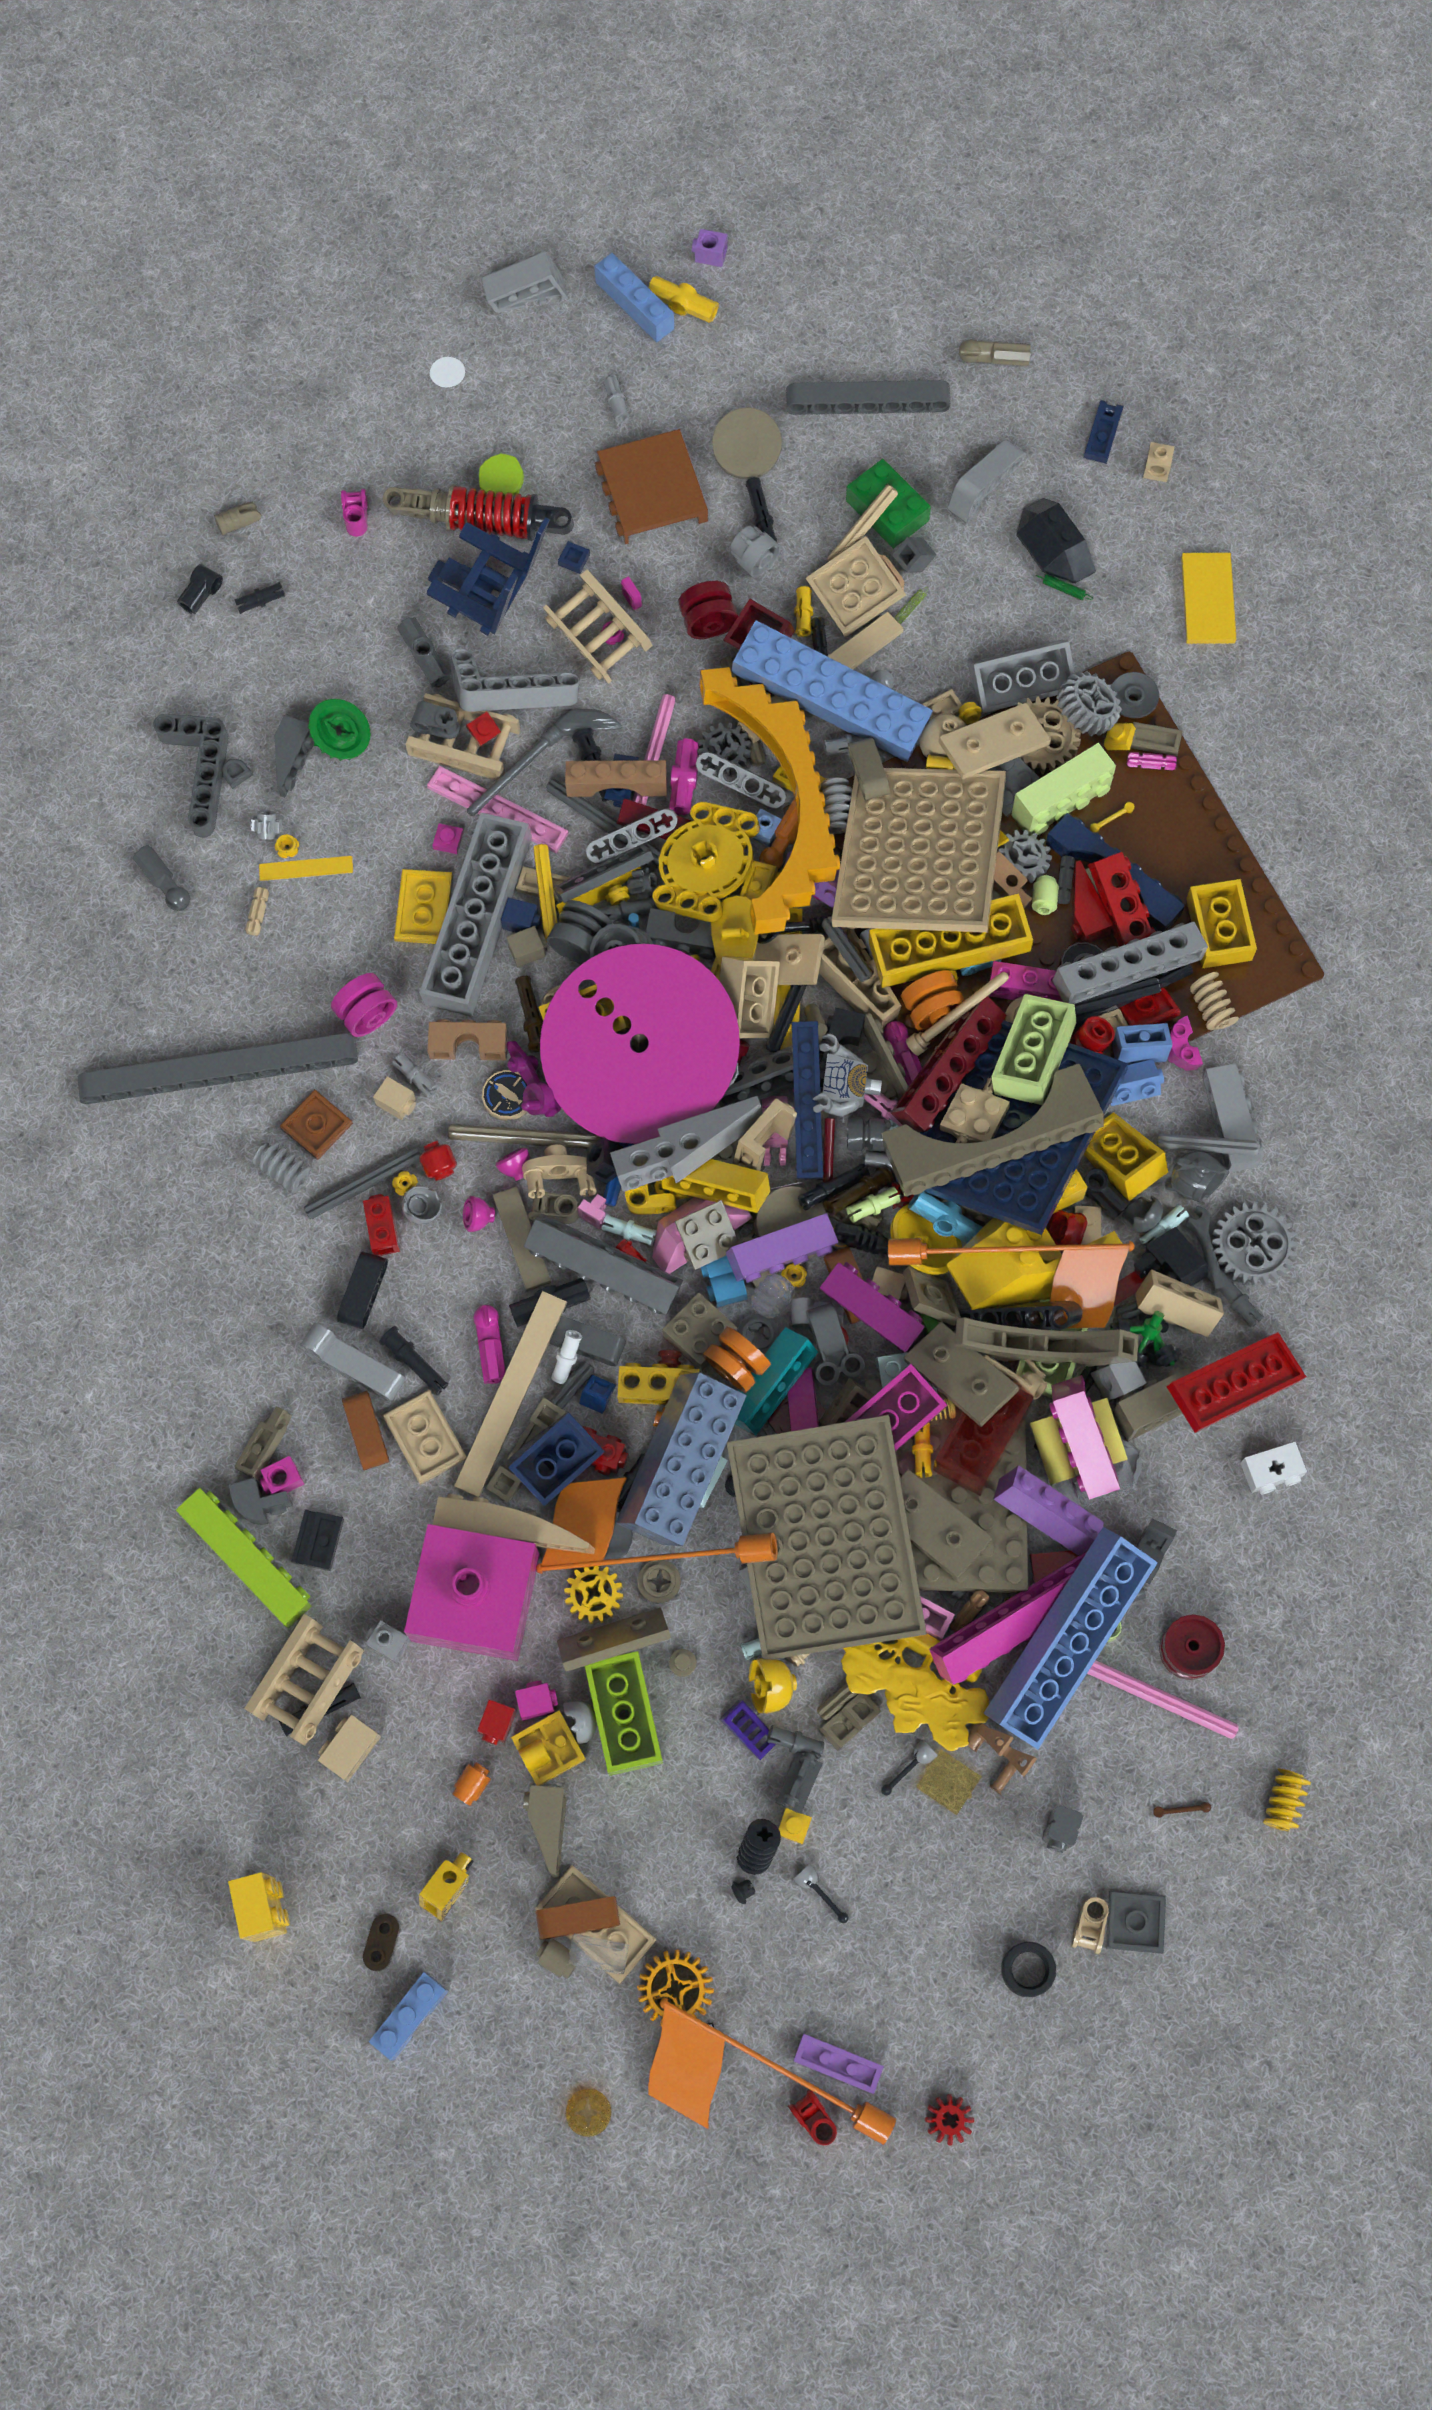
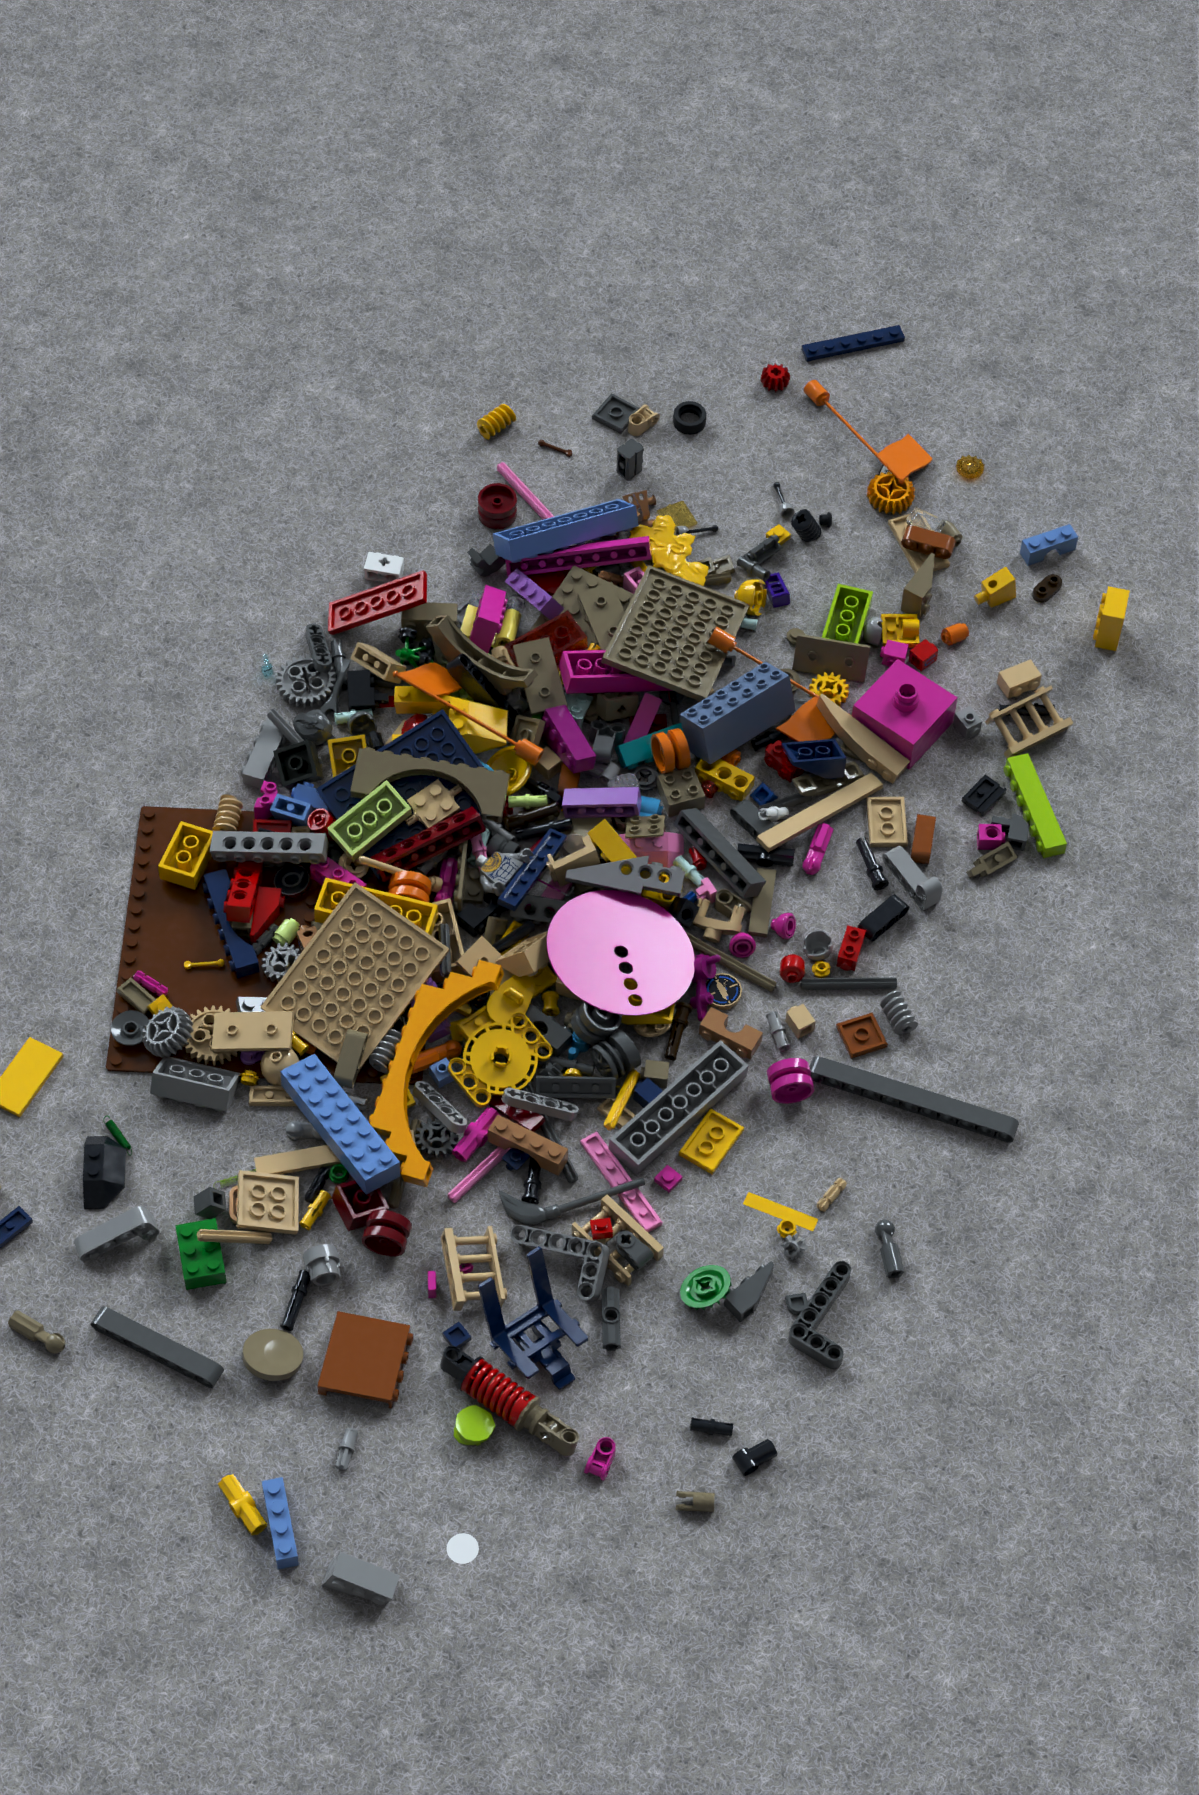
camera: 155 degrees left, 15 degrees down
(710, 247) = (188, 1529): medium lavender brick -> none
(813, 2116) = (848, 407): red piece -> none
(838, 2063) = (820, 425): medium lavender plate -> none
(873, 2266) = (853, 343): none -> dark blue plate
(1063, 790) = (225, 982): yellowish green brick -> none
(1177, 1106) = (298, 764): none -> pearl dark grey brick
(1266, 1296) = (323, 661): none -> dark grey beam
(1313, 1241) = (267, 668): none -> clear light blue hand

